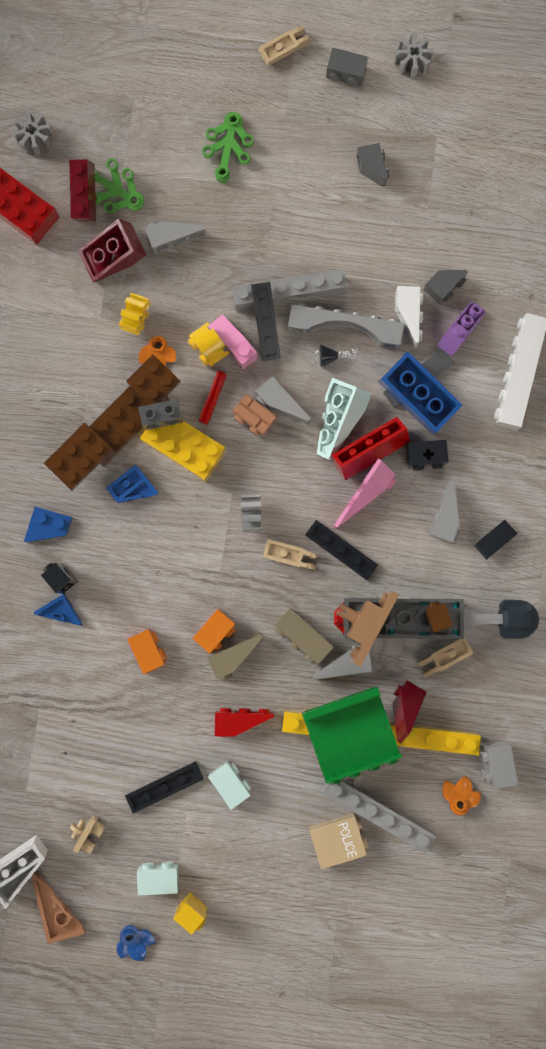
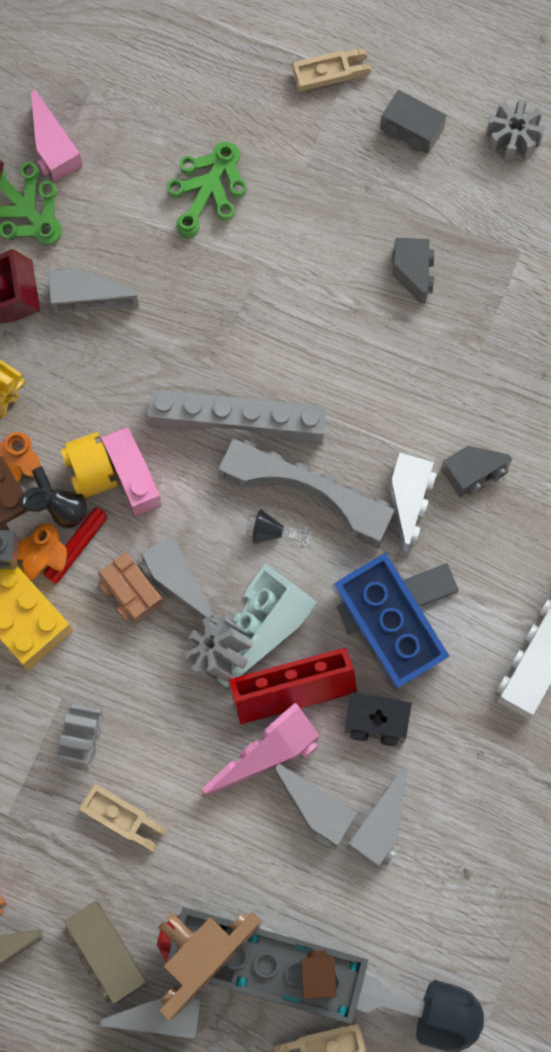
camera: 10 degrees right, 10 degrees down
(124, 146) = (54, 148): none -> bright pink slope
(193, 408) = (38, 553): none -> orange plate
(199, 375) = (64, 506): none -> black piece
(265, 320) = (187, 452): black tile -> none
(320, 438) = (218, 649): none -> light grey gear
(341, 550) = (204, 832): black tile -> none
(407, 519) = (321, 812): none -> light grey slope
(461, 328) = (481, 541): medium lavender slope -> none
(495, 539) = (449, 880): black slope -> none

